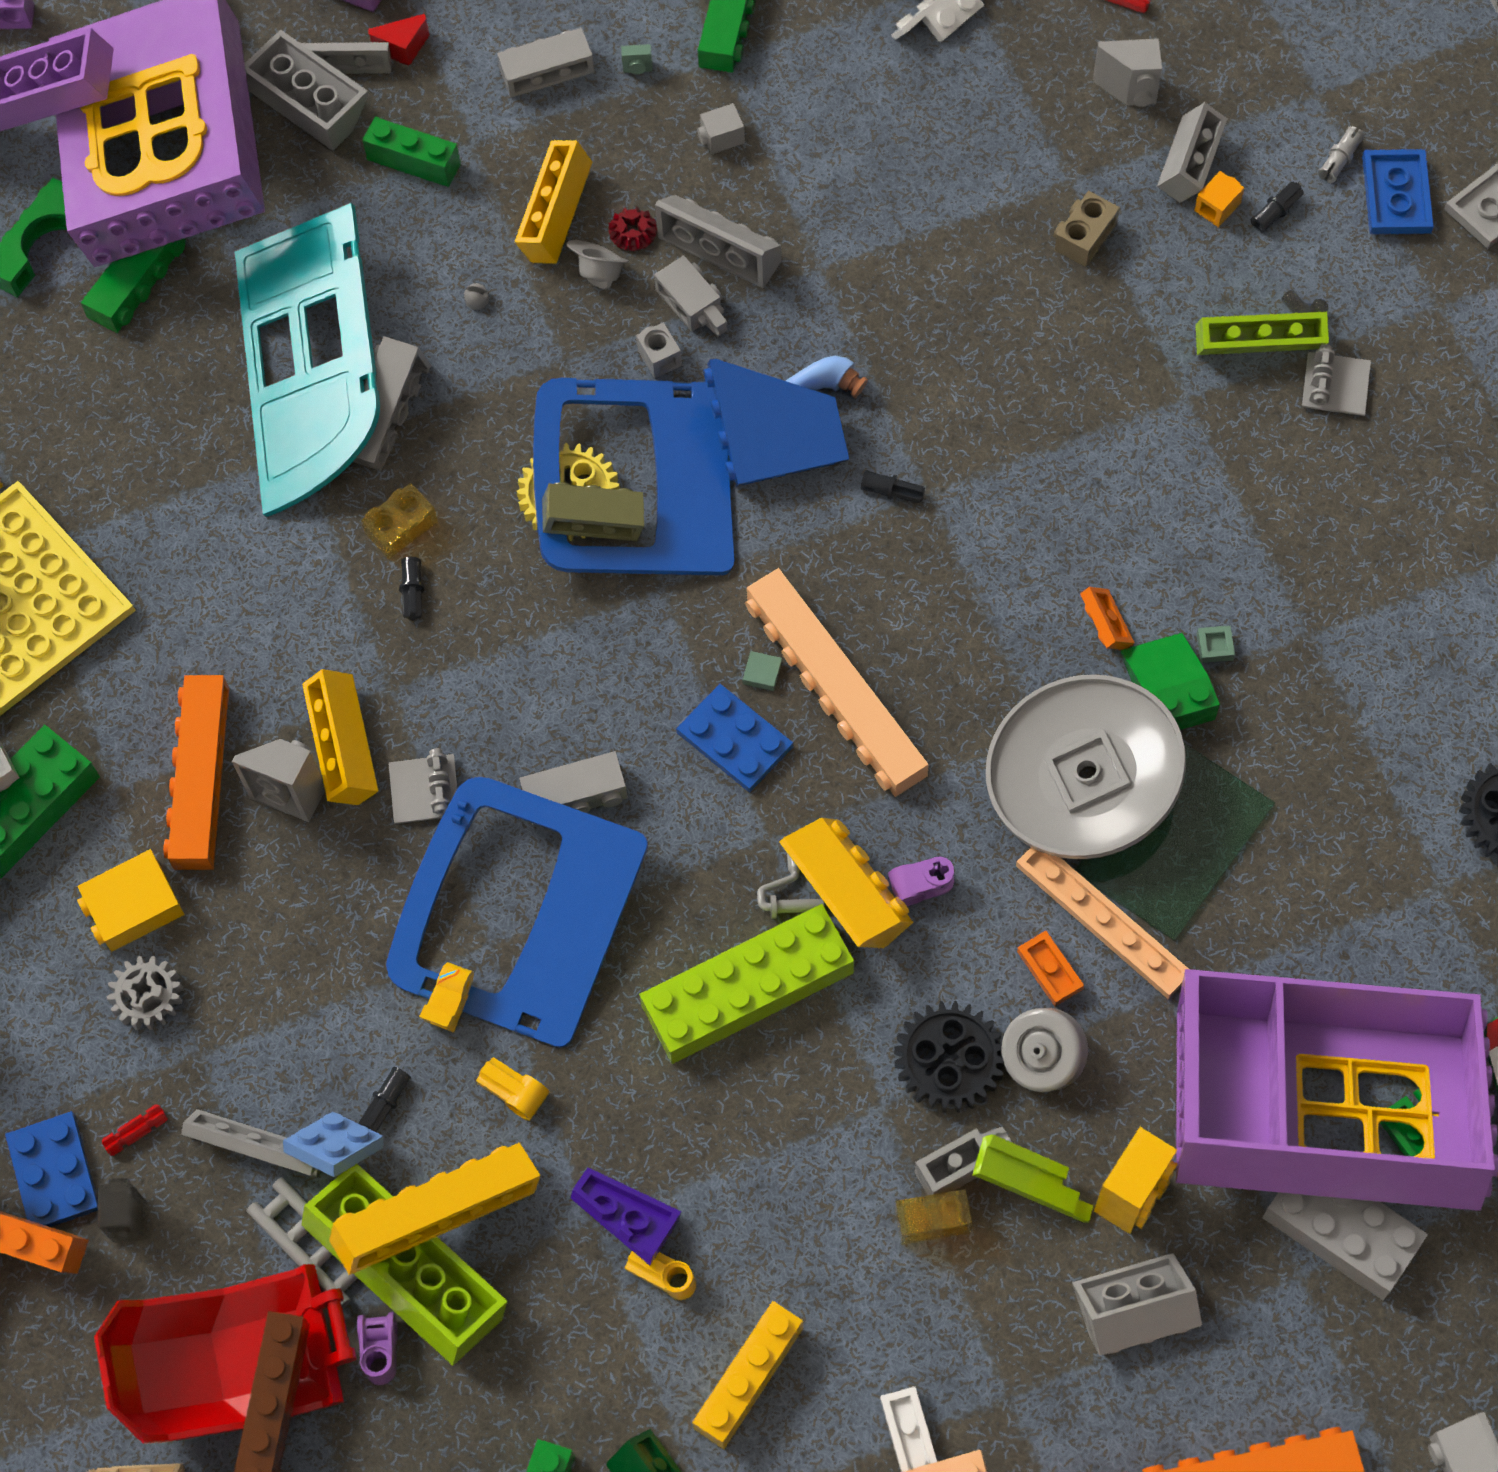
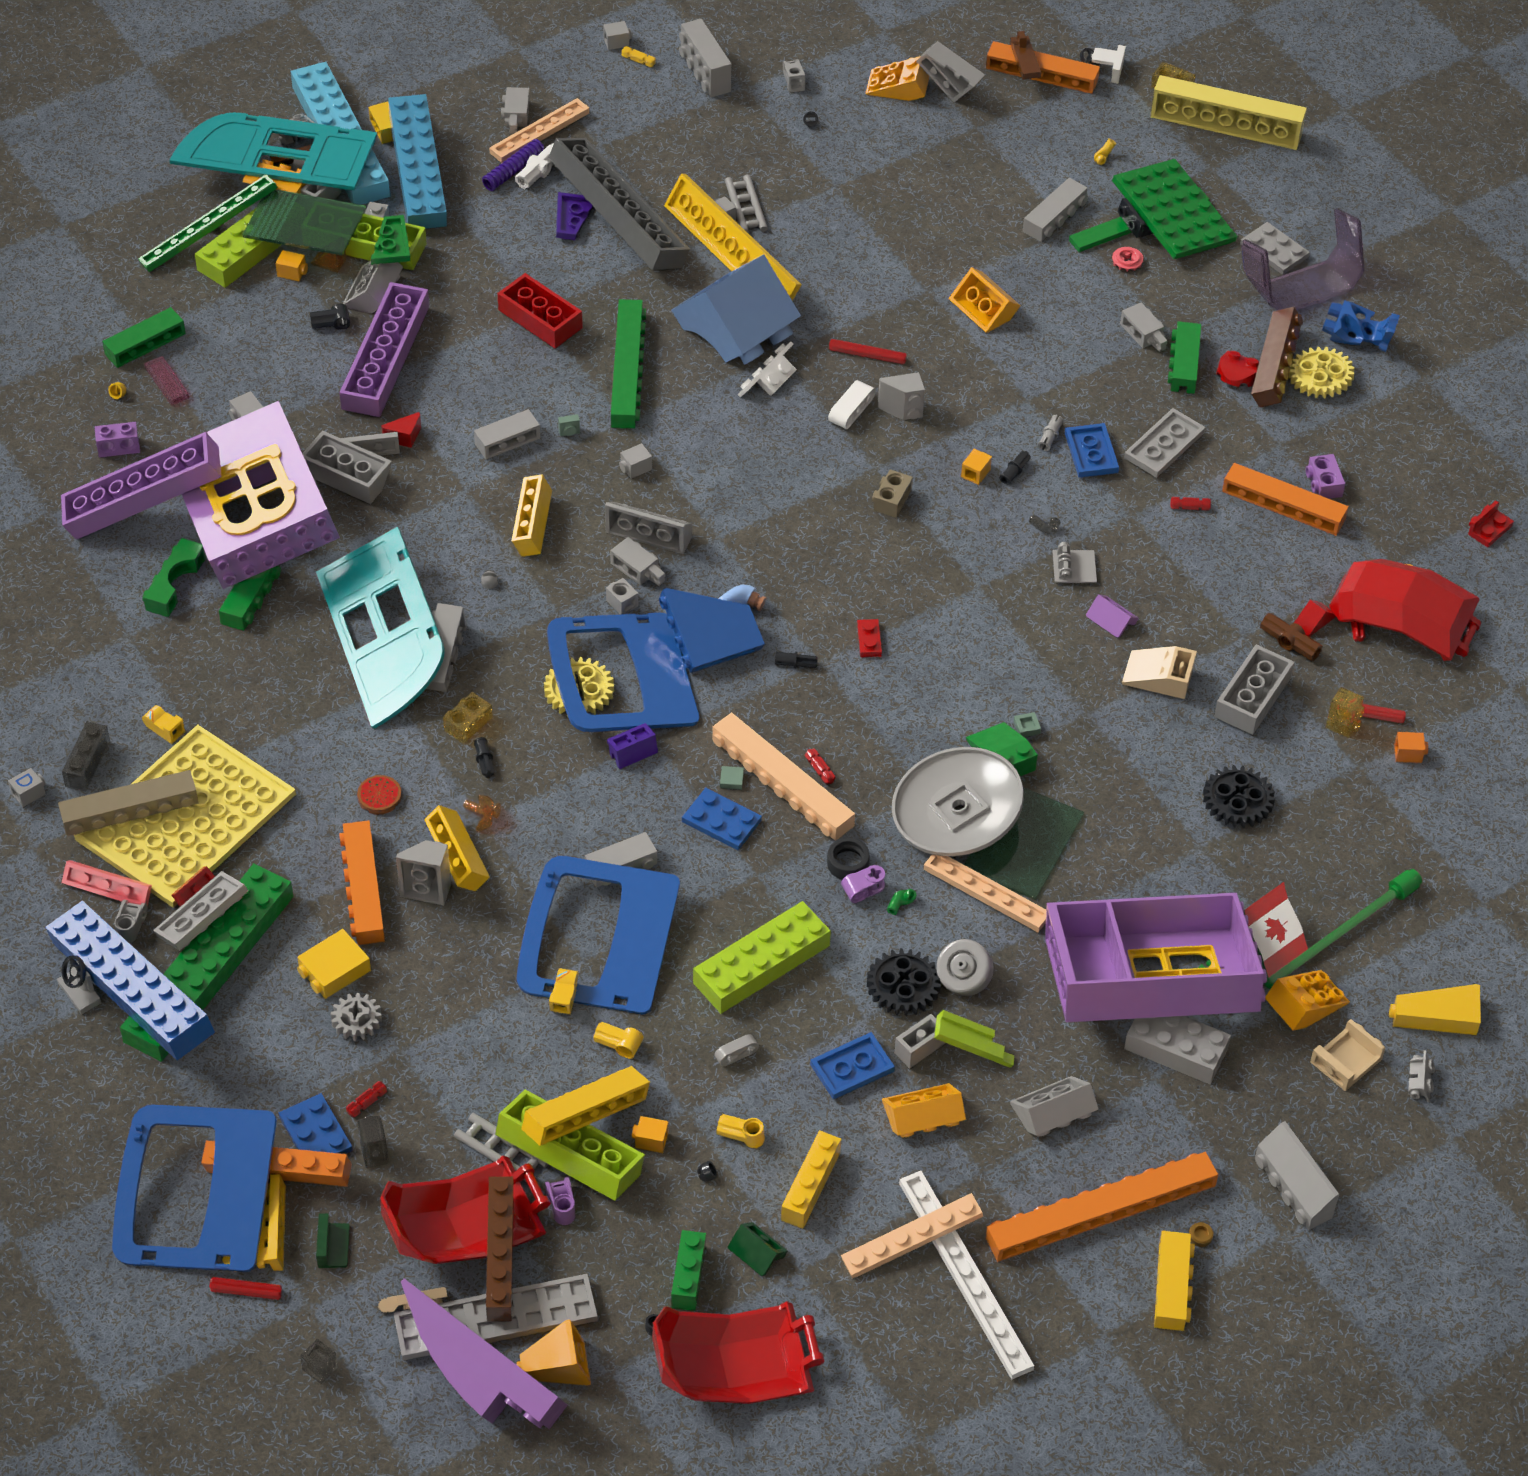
camera: 15 degrees left, 15 degrees down
(37, 1363) = (332, 1243): none -> dark green panel
(243, 1139) = (451, 1093): light grey hinge -> none
(252, 627) = (379, 794): none -> tile
(333, 1144) = (507, 1081): medium blue plate -> none
(385, 1099) = (533, 1058): black axle -> none
(395, 676) = (486, 808): none -> clear orange plant
(411, 151) = (427, 497): green brick -> none
(422, 787) = (518, 873): light grey hinge -> none
(528, 1258) = (650, 1134): none -> light orange brick
(593, 511) = (601, 692): olive brick -> none
(597, 263) = (570, 552): light grey piece -> none
(600, 1332) = (707, 1171): none -> black hinge
(626, 1213) = (709, 1098): dark purple wing -> none
(627, 600) = (633, 745): none -> dark purple hinge
(633, 239) = (588, 534): dark red gear -> none
(681, 1134) = (736, 1050): none -> light grey beam
(785, 906) = (769, 912): light grey piece -> none
(846, 1186) = (852, 1065): none -> blue plate
(848, 883) = (818, 888): yellow slope -> none
(895, 670) = (820, 766): none -> red axle
(906, 809) = (847, 844): none -> black tyre
(933, 1217) = (912, 1073): clear yellow brick -> none
(939, 1279) = (924, 1109): none -> light orange slope
(971, 912) = (900, 899): none -> green arm
(1008, 464) = (869, 638): none -> red plate
(1050, 968) = (958, 922): orange plate -> none
(1054, 72) = (851, 404): none -> white beam
(1107, 618) = (949, 713): orange plate -> none
(1137, 1181) = (1040, 1028): yellow brick -> none
(1192, 152) = (953, 440): light grey brick -> none
(1261, 333) = (1020, 540): lime brick -> none
(1376, 474) = (1110, 615): none -> medium lavender panel
(1434, 580) = (1161, 670): none -> tan slope

